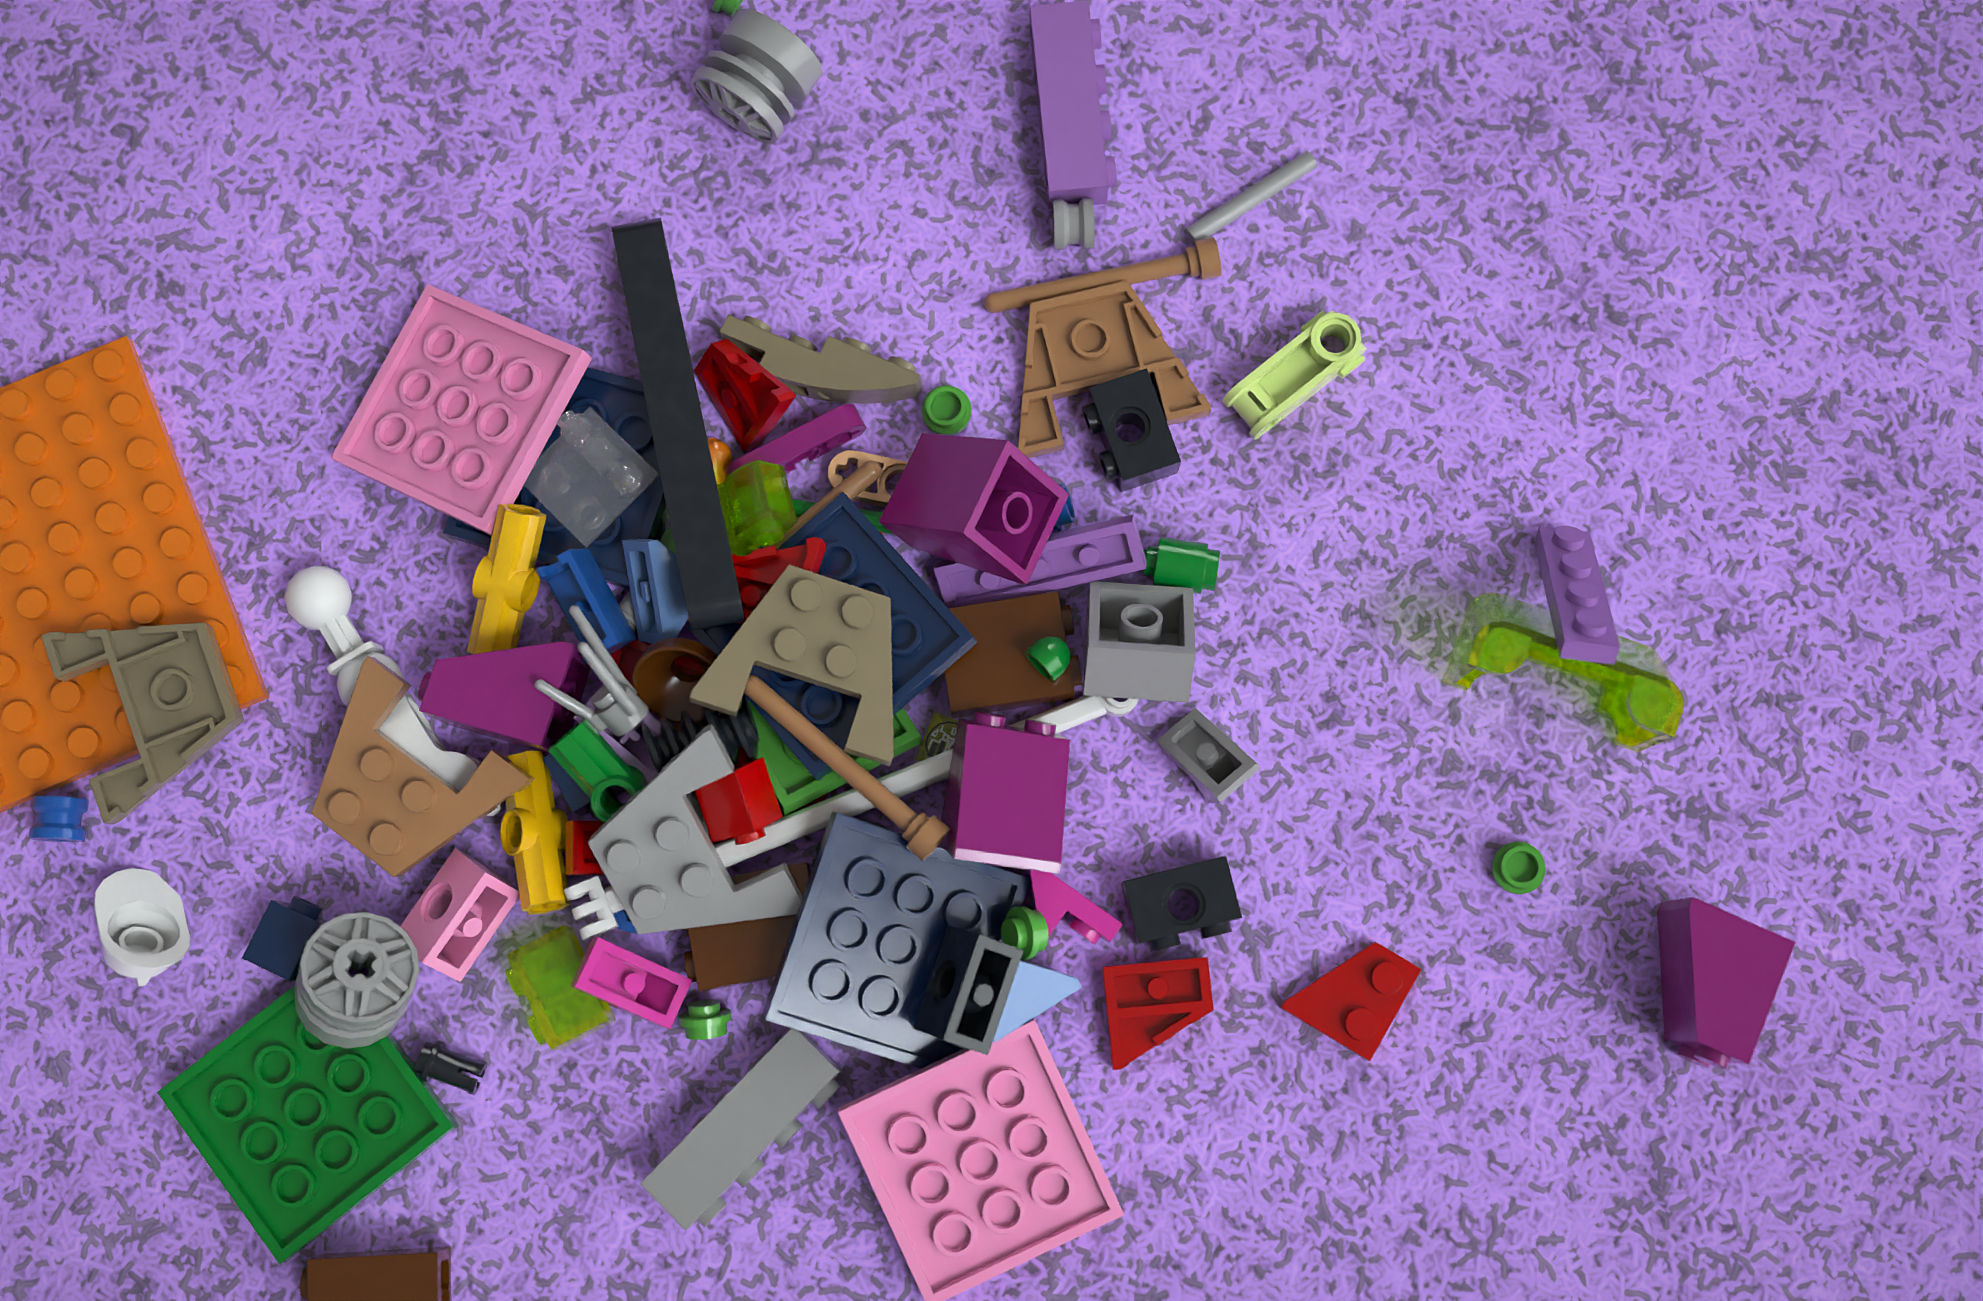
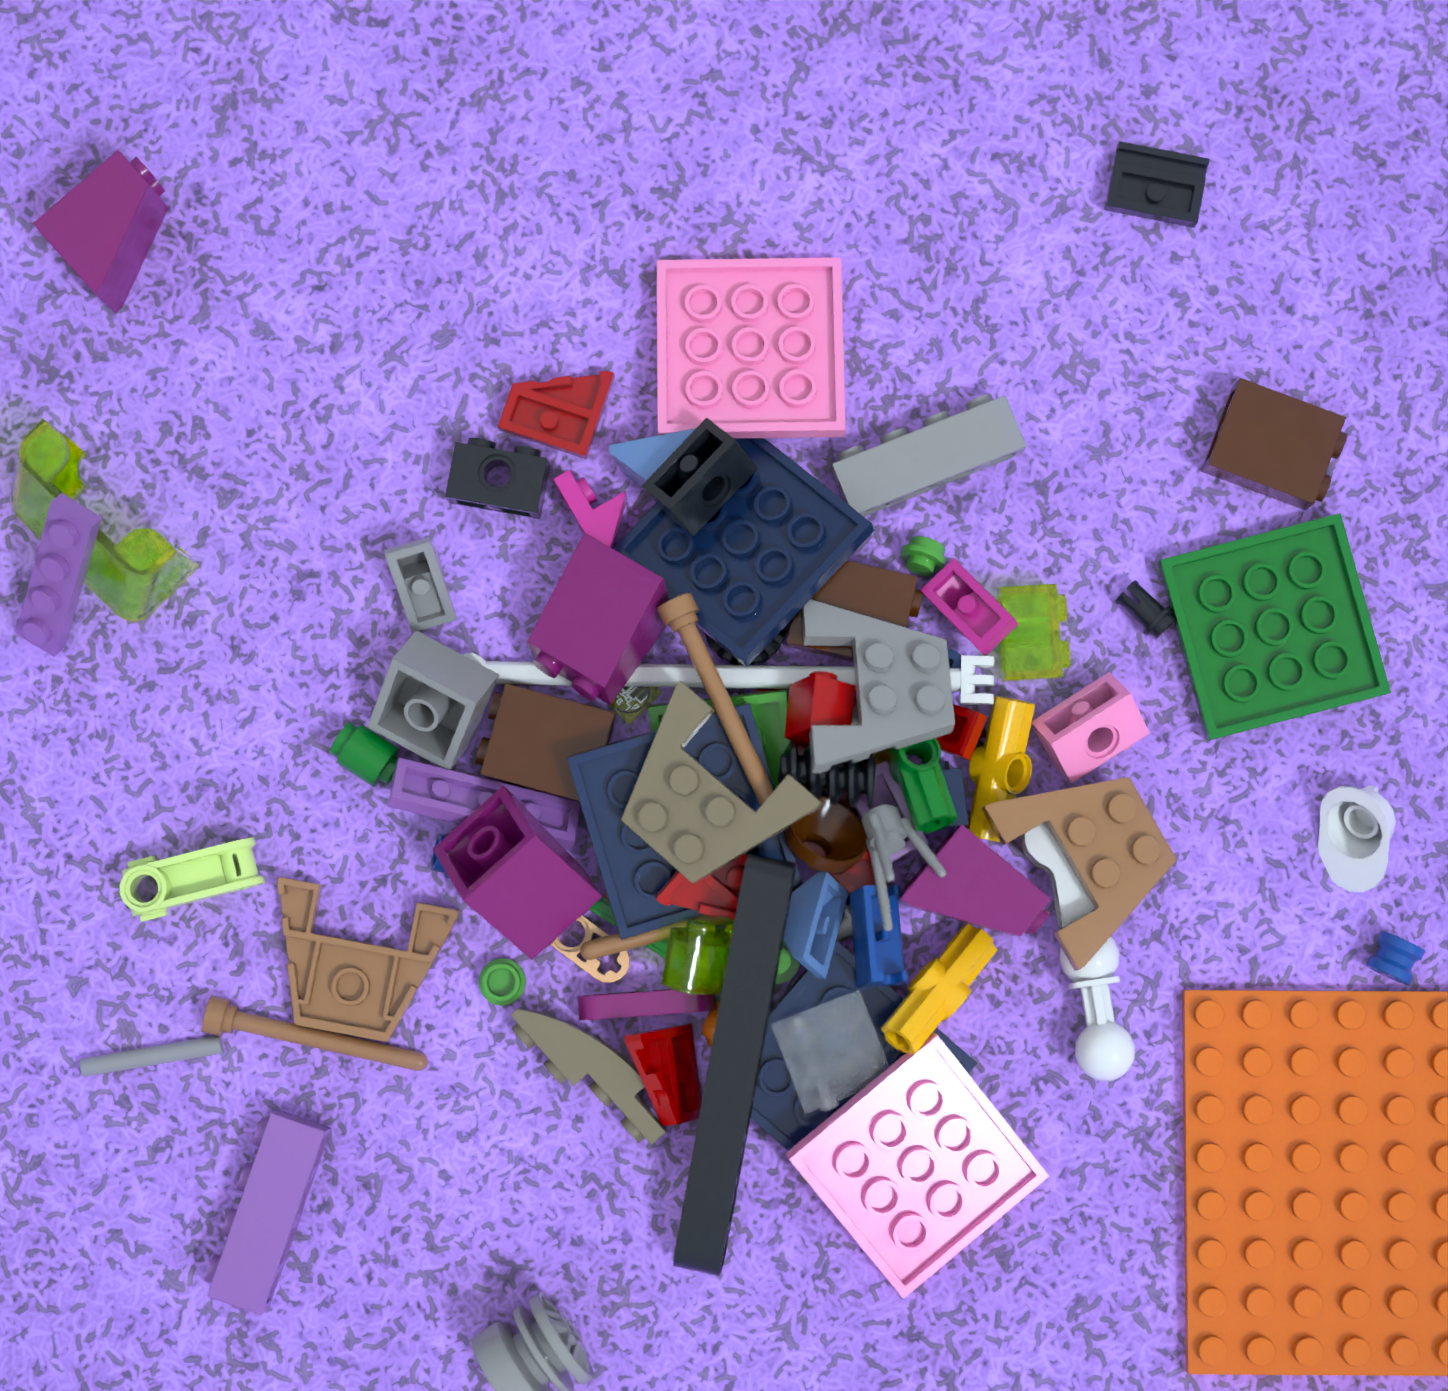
camera: 155 degrees left, 5 degrees up
(172, 696) = (1258, 1020): dark tan wing -> none
(283, 936) = (1238, 771): dark blue brick -> none
(359, 1008) = (1216, 711): light grey wheel -> none
(1025, 930) = (634, 507): bright green plate -> none
(1049, 657) = (512, 717): green hinge -> none
(1073, 223) = (316, 1098): light grey wheel -> none
(1134, 402) = (336, 911): black brick -> none
(1356, 999) = (395, 344): red wing -> none
(1518, 868) = (215, 388): bright green plate -> none

